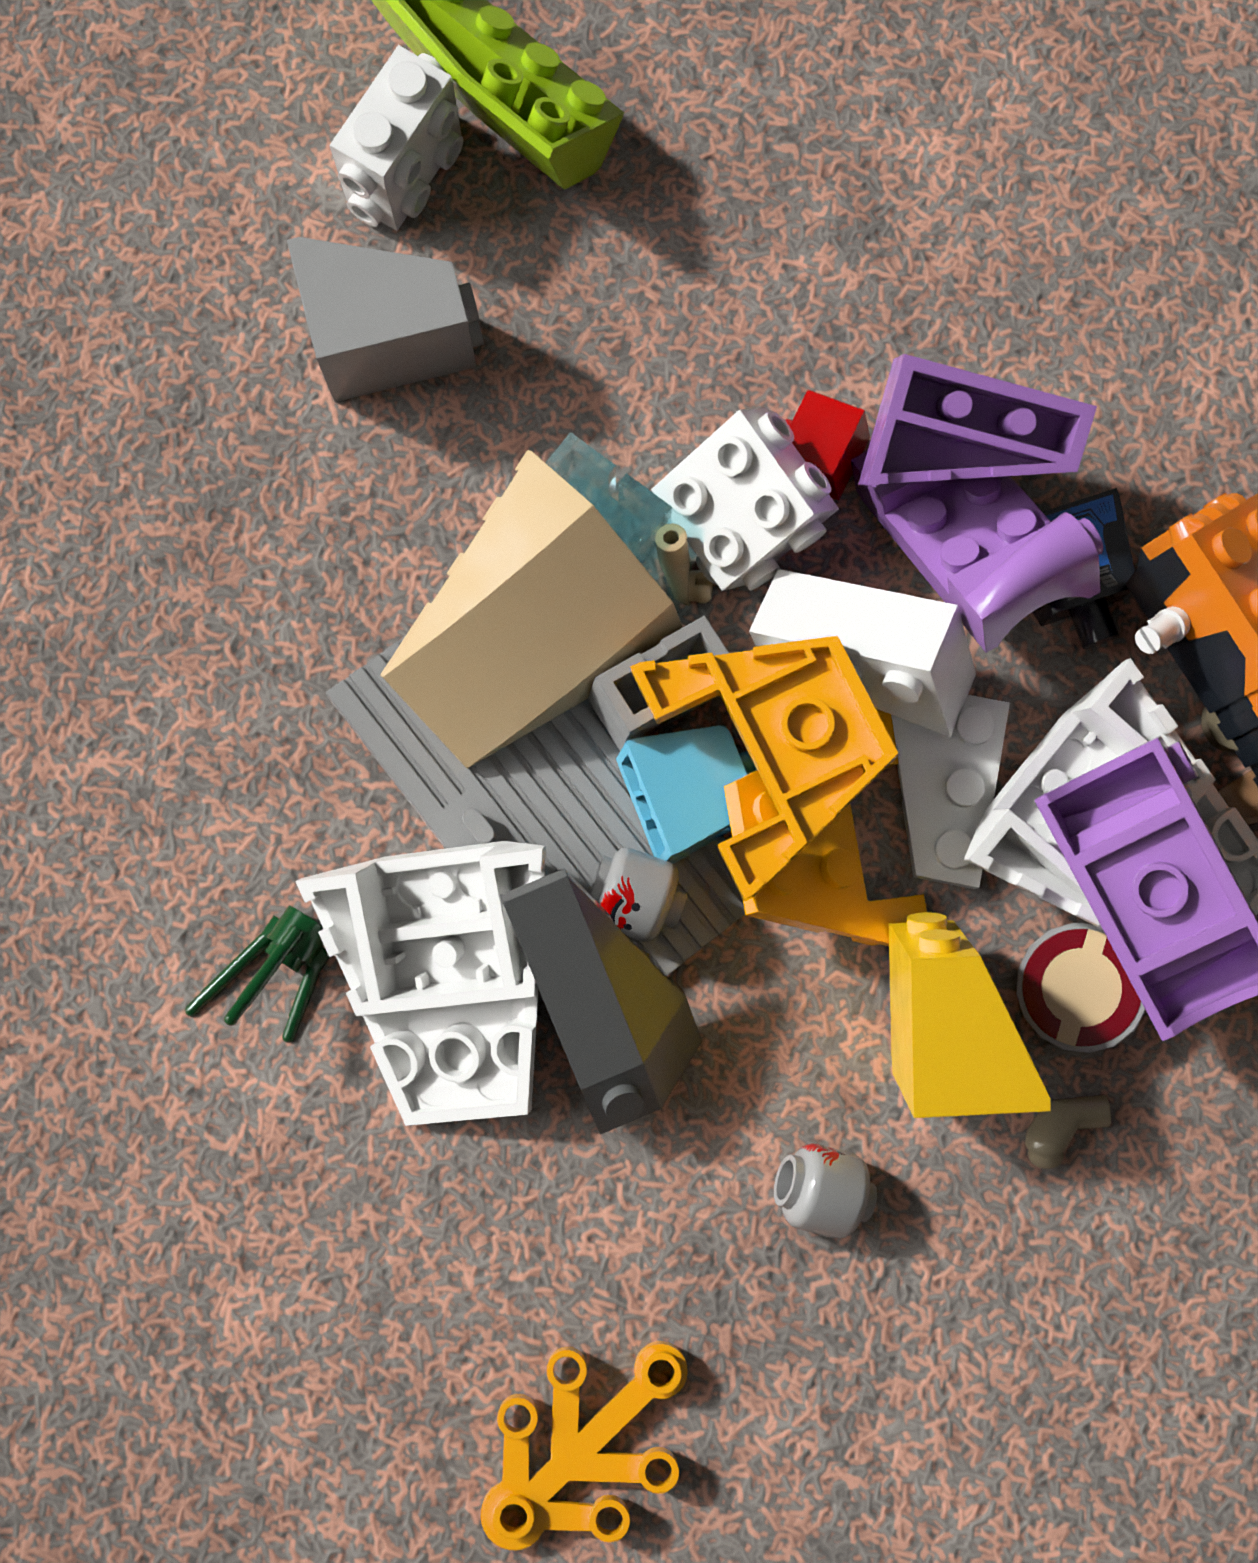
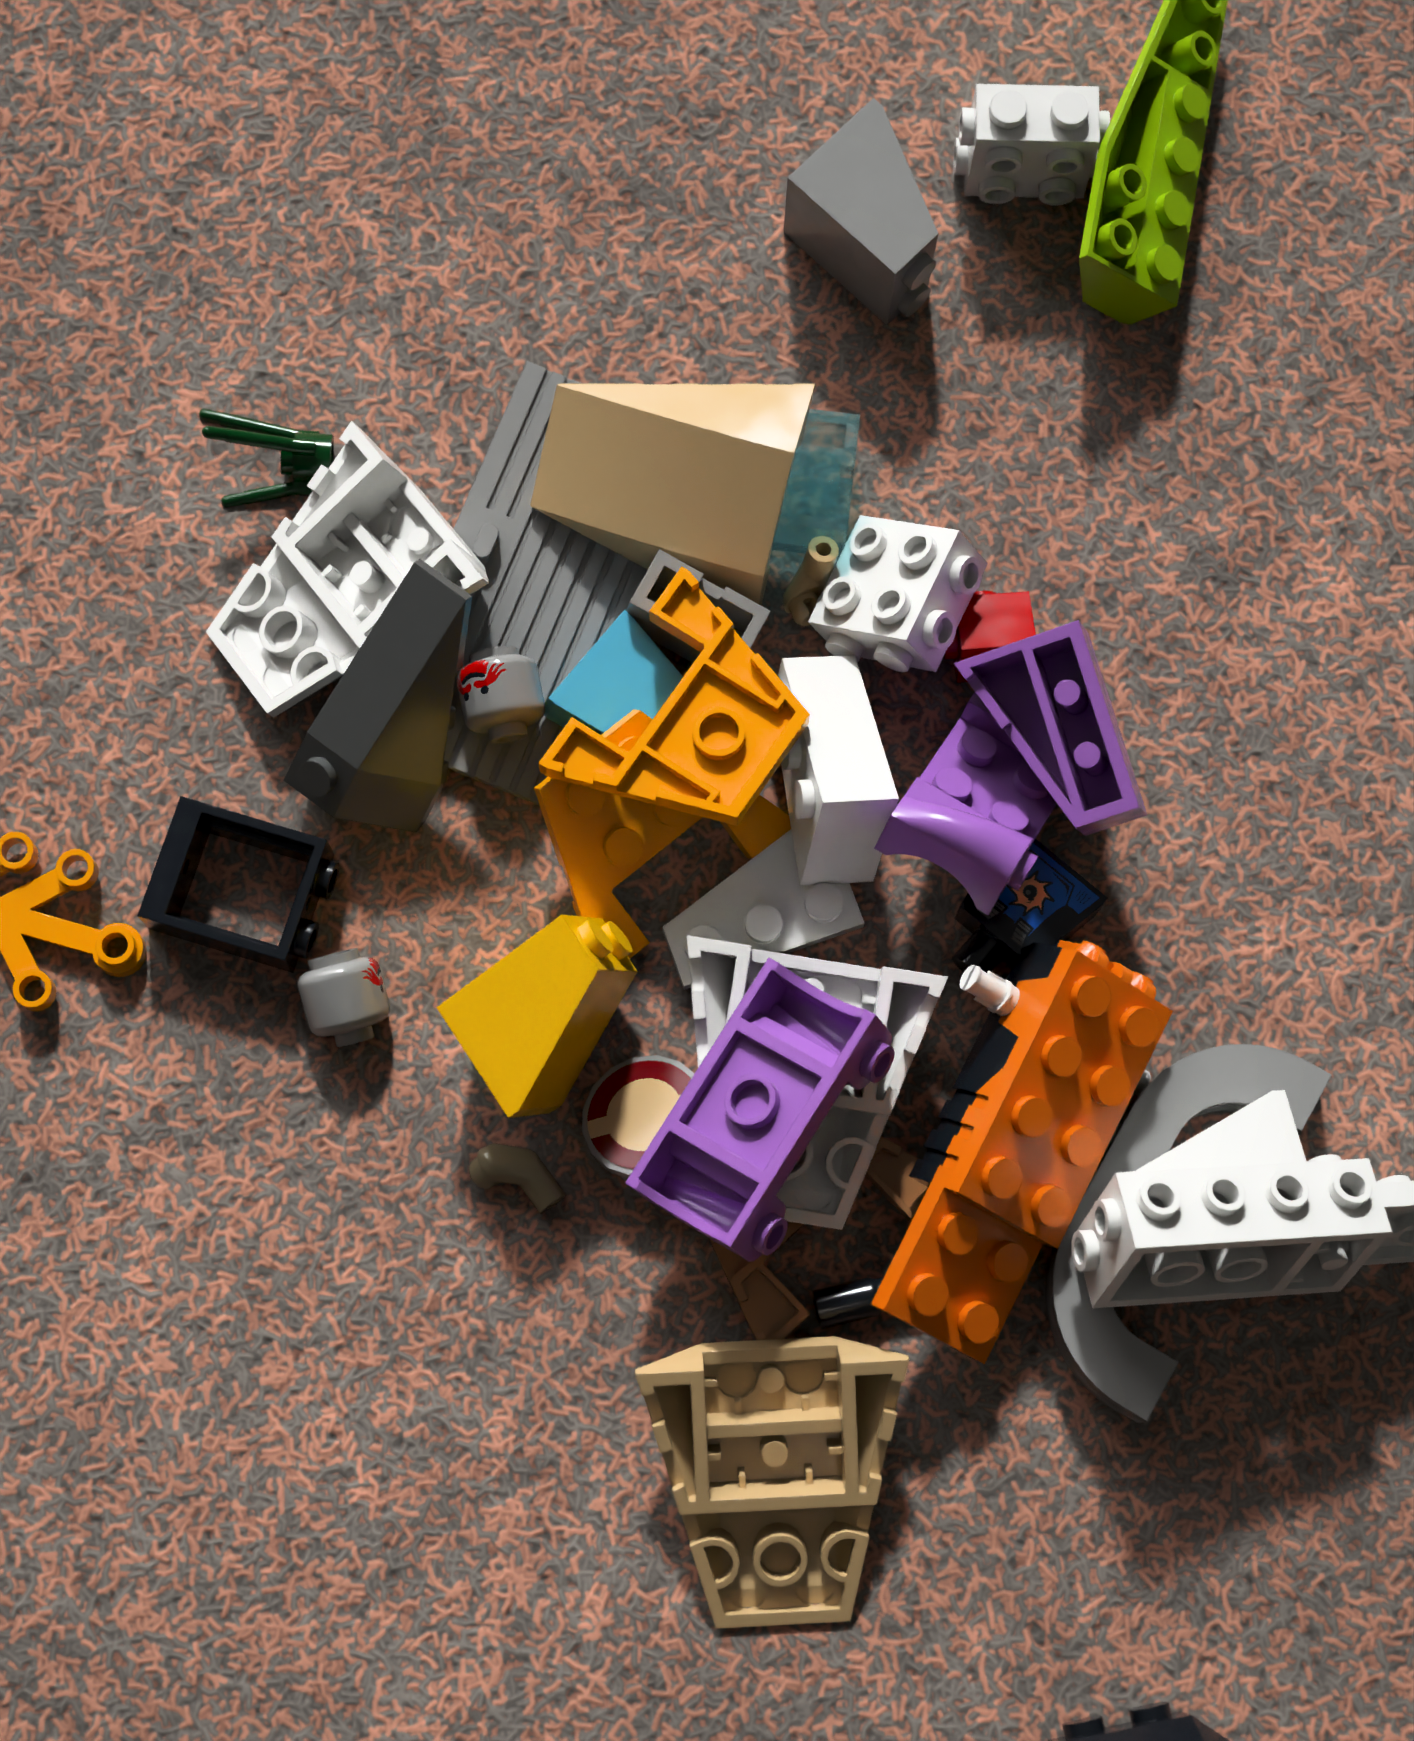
camera: 60 degrees right, 5 degrees down
(617, 1274) = (179, 862): none -> black window

